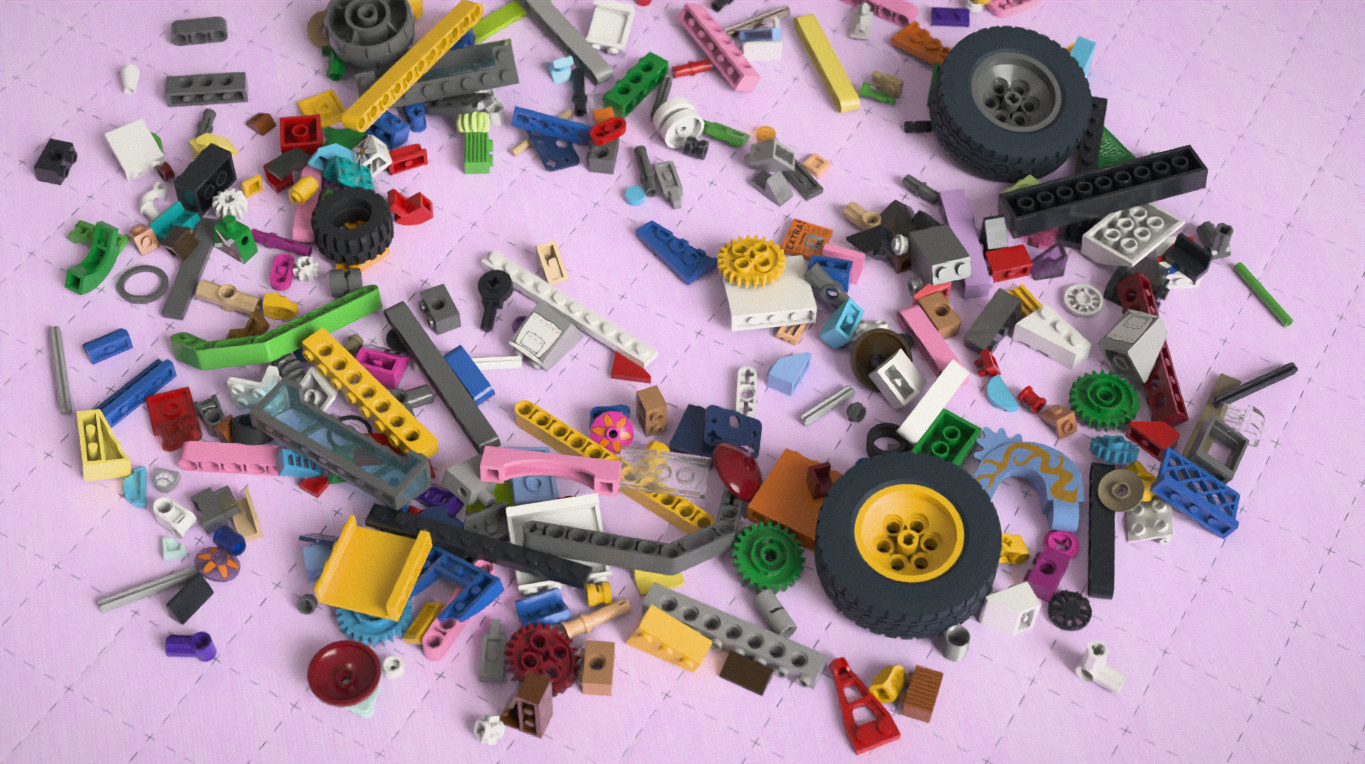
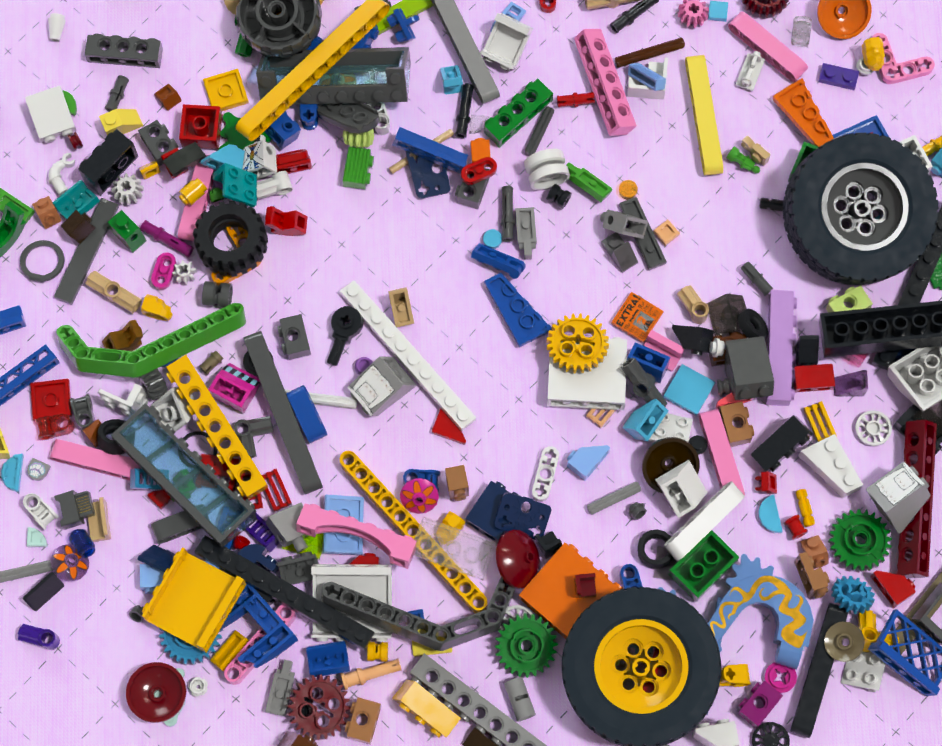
camera: 15 degrees right, 20 degrees up
(252, 157) = (155, 144): none -> dark grey brick
(339, 506) = (173, 527): none -> dark grey beam
(395, 178) = (277, 184): none -> white piece
(444, 441) = (282, 505): none -> red tile
(502, 26) = (399, 18): none -> blue hips
(646, 210) = (498, 260): none -> blue plate
(766, 457) = (548, 543): none -> black panel
(880, 295) = (689, 389): none -> medium azure tile
(1035, 381) = (805, 507): none -> yellow axle
(1064, 436) = (813, 580): none -> medium nougat plate

